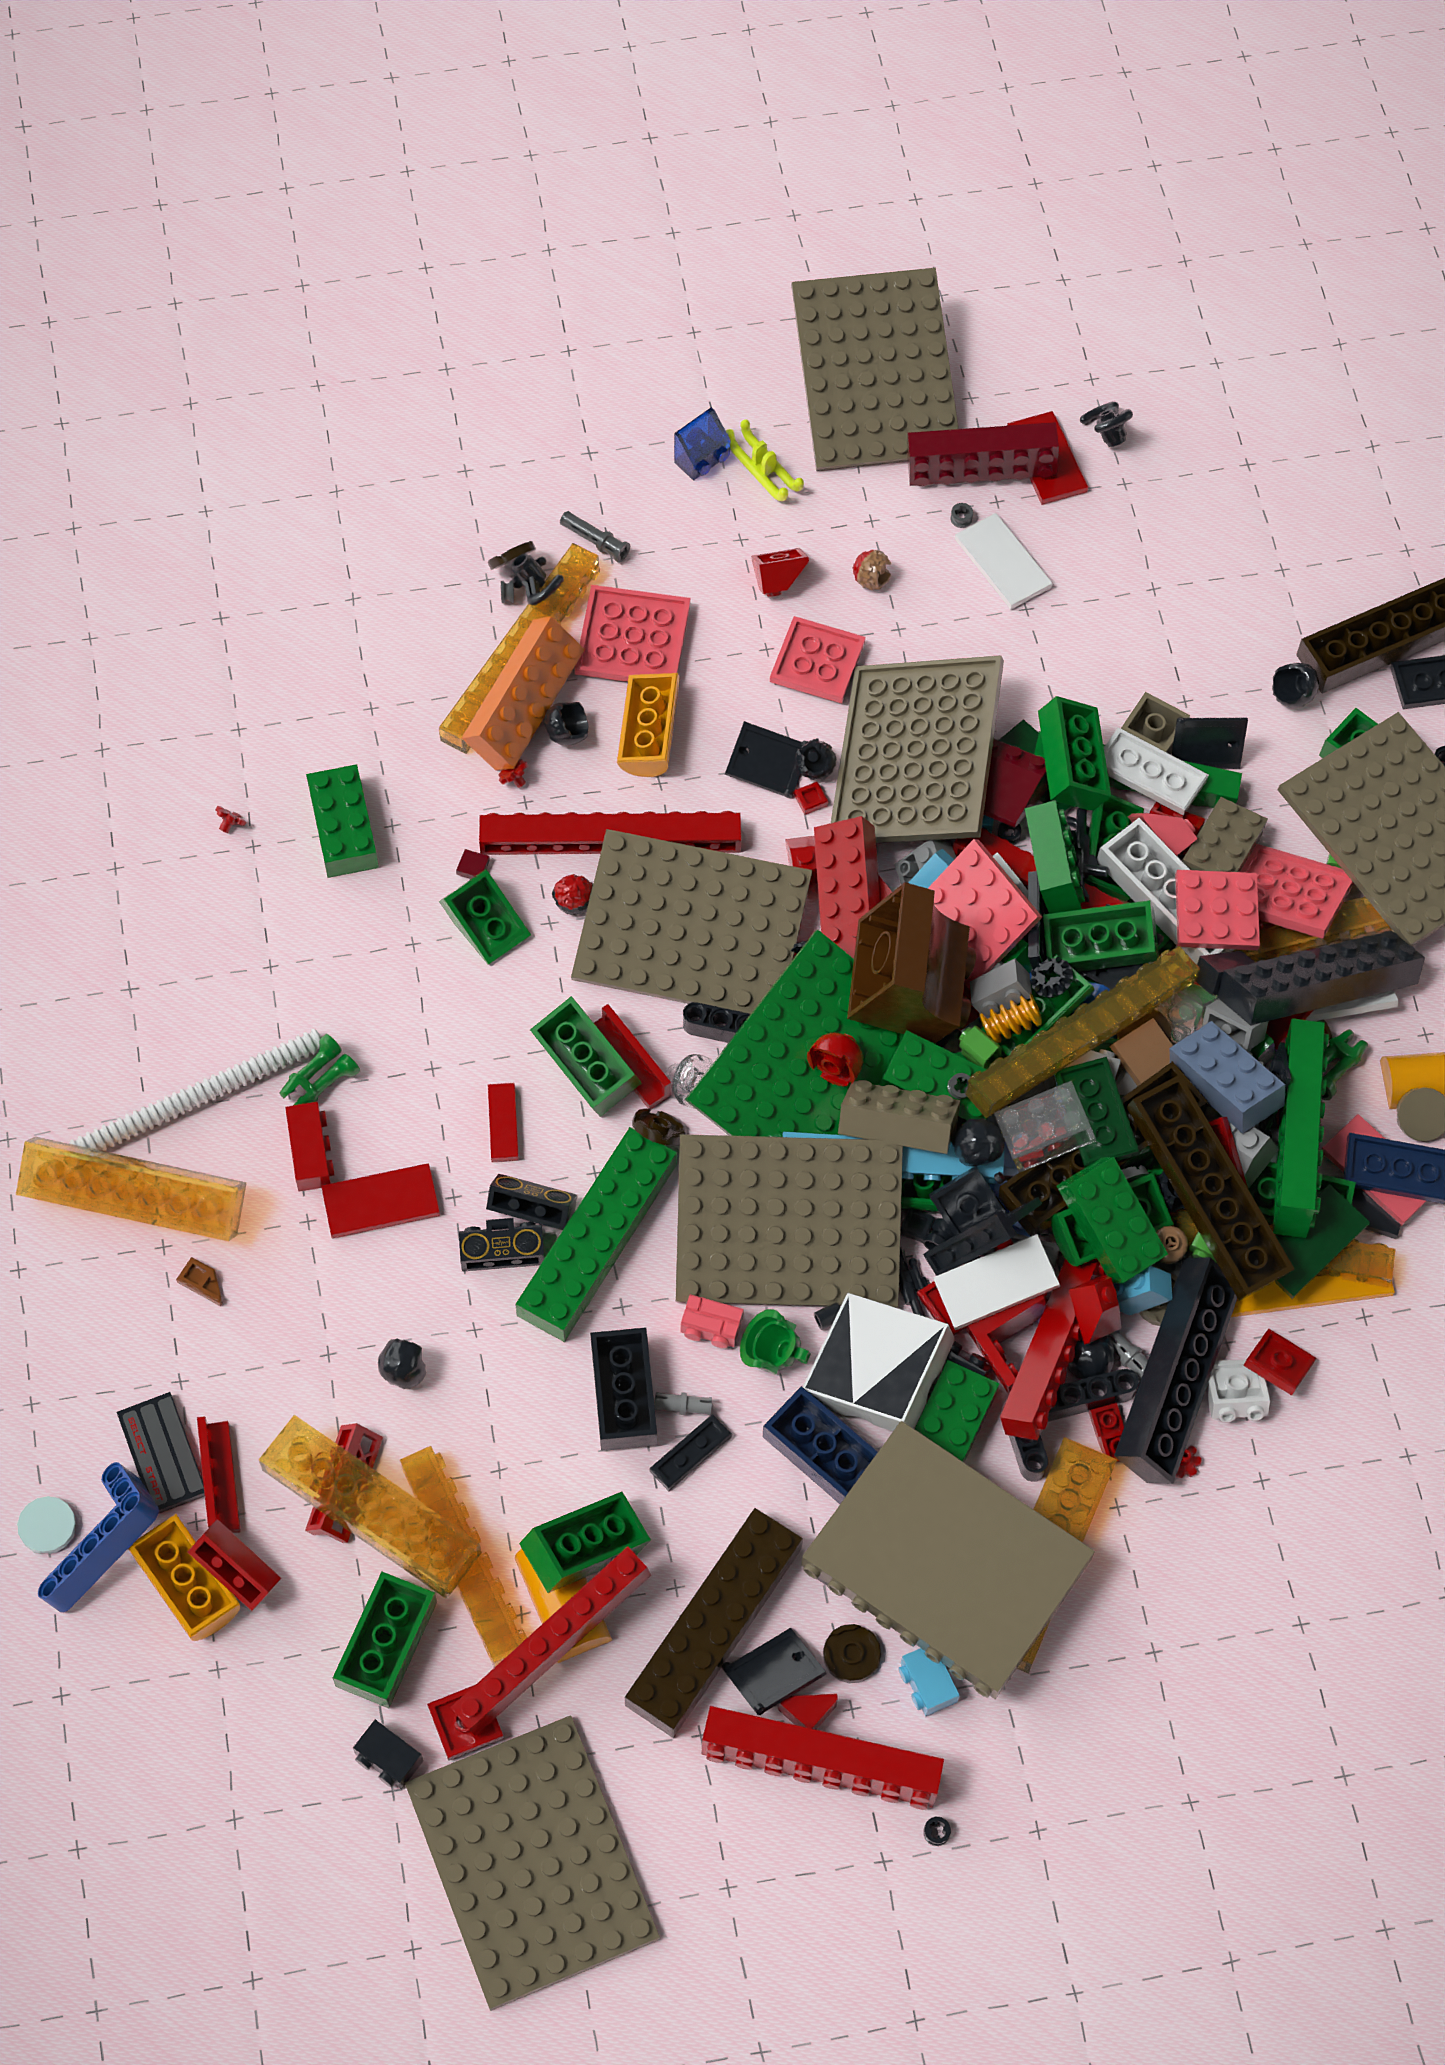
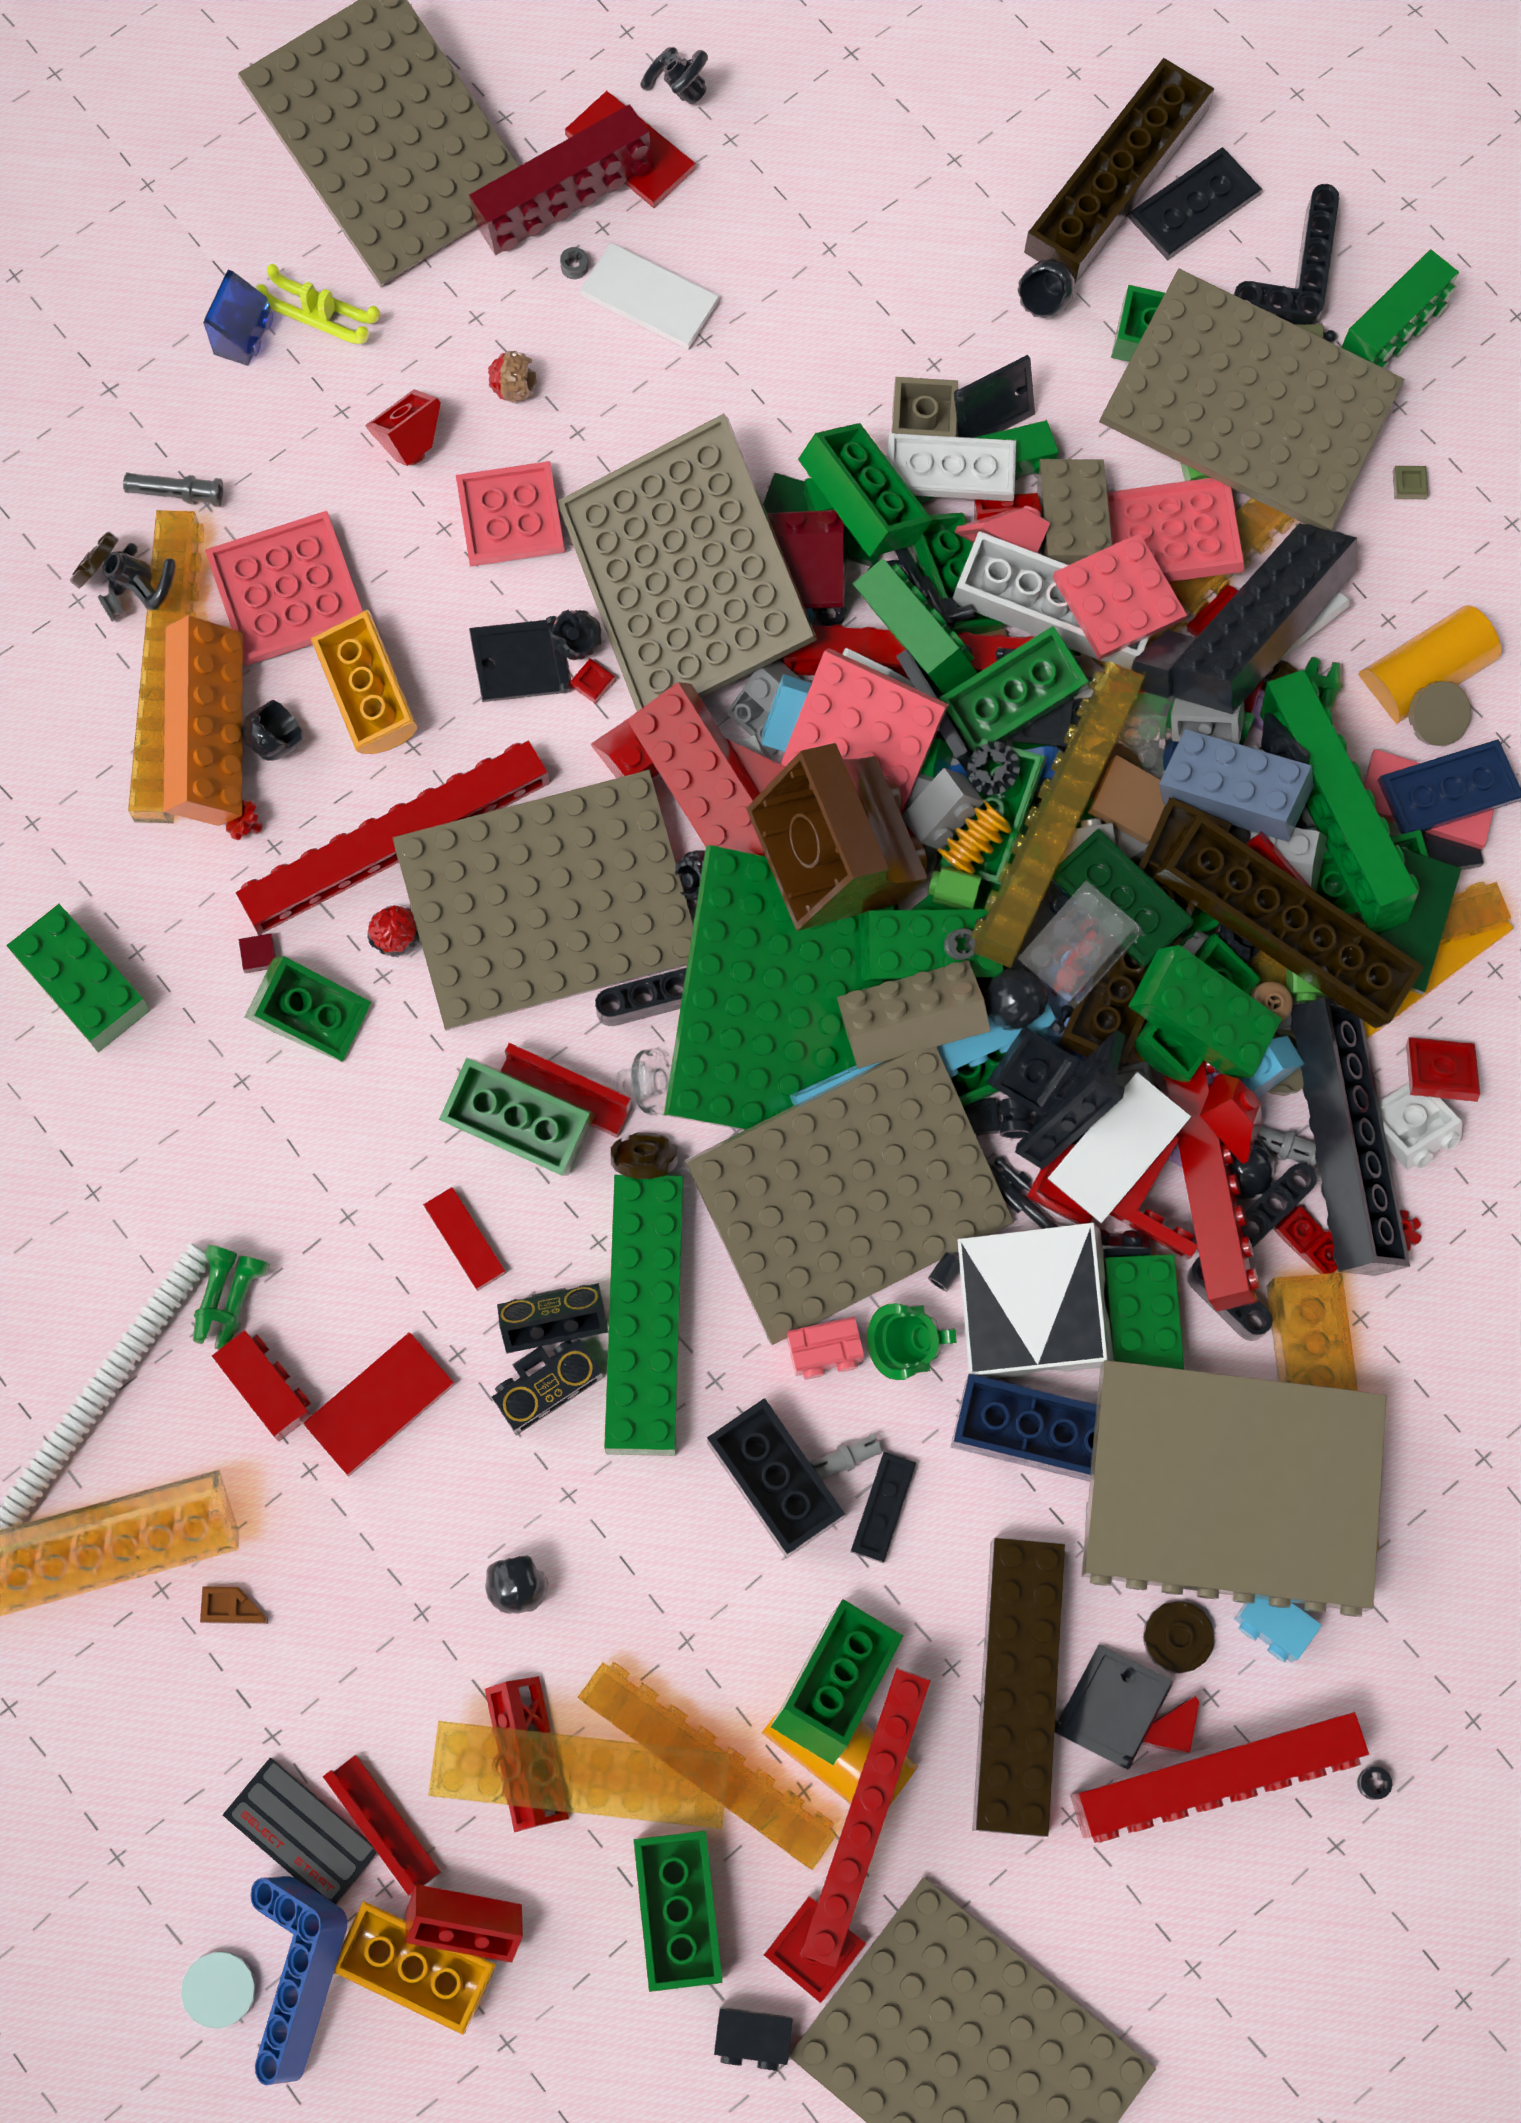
camera: 30 degrees left, 10 degrees up
(837, 1058) = (809, 981): red cylinder -> none

